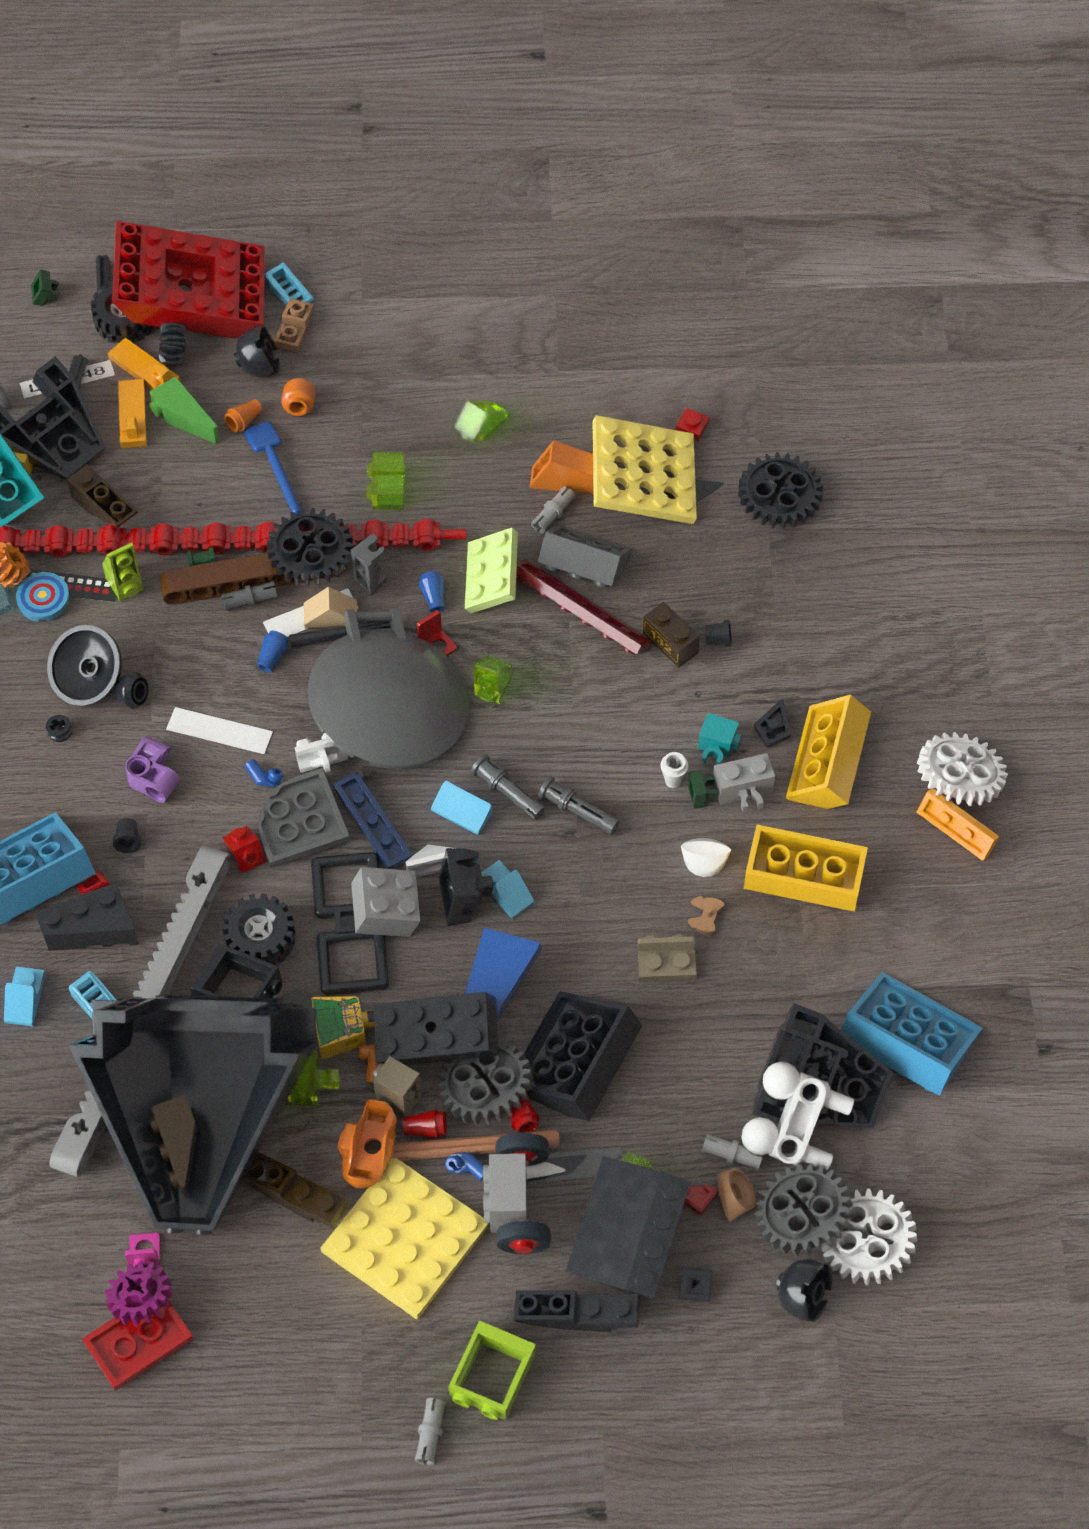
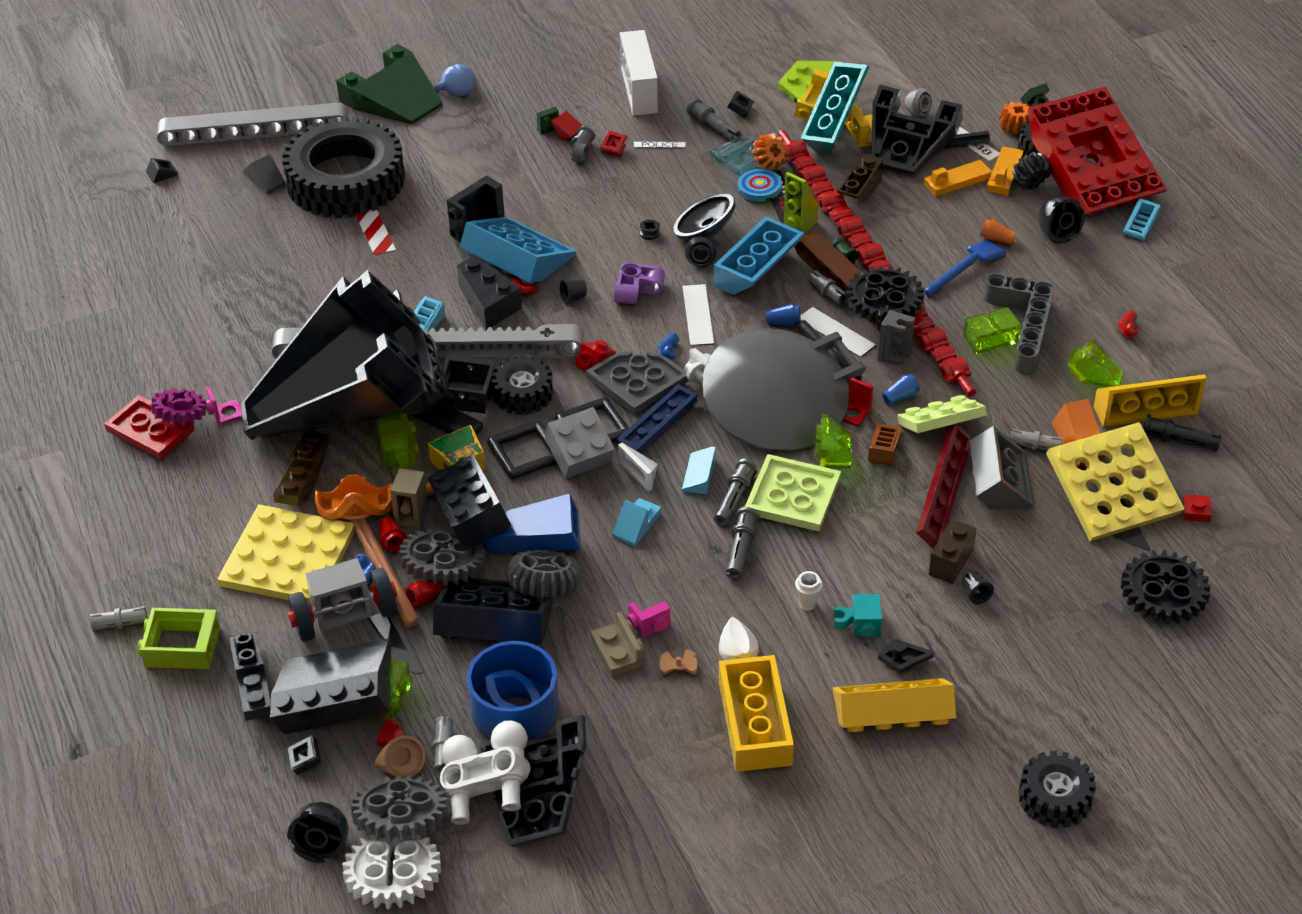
camera: 70 degrees right, 15 degrees down
(23, 996) = (413, 283): medium azure slope -> none
(71, 320) = (1013, 117): none -> orange gear
(179, 639) = (754, 255): none -> dark azure slope
(179, 1135) = (312, 383): dark brown slope -> none
(182, 410) = (980, 194): bright green slope -> none
(294, 325) = (1112, 234): medium nougat slope -> none
(298, 397) = (1036, 255): orange head -> none
(327, 609) = (850, 335): tan slope -> none
(370, 424) = (1027, 295): none -> dark grey beam
(430, 370) = (1126, 325): none -> red arm
(462, 884) = (616, 481): black brick -> none
(506, 648) = (884, 444): none -> dark orange slope
(531, 737) = (793, 492): none -> yellowish green plate
(547, 394) = (1159, 398): none -> yellow slope
(557, 992) = (543, 573): none -> dark grey gear
(591, 399) = (1168, 430): none -> black pin
(651, 915) = (649, 620): none -> dark pink bracket
(698, 789) = (802, 616): dark green tile -> none
(711, 1037) = (508, 672): none -> blue piece
(744, 780) = (826, 645): light grey brick -> none
(911, 1032) = (622, 846): dark azure slope -> none
(957, 824) = (879, 806): light orange hinge -> none
(962, 769) = (933, 808): white gear -> none
(976, 657) = (1052, 774): none -> black wheel

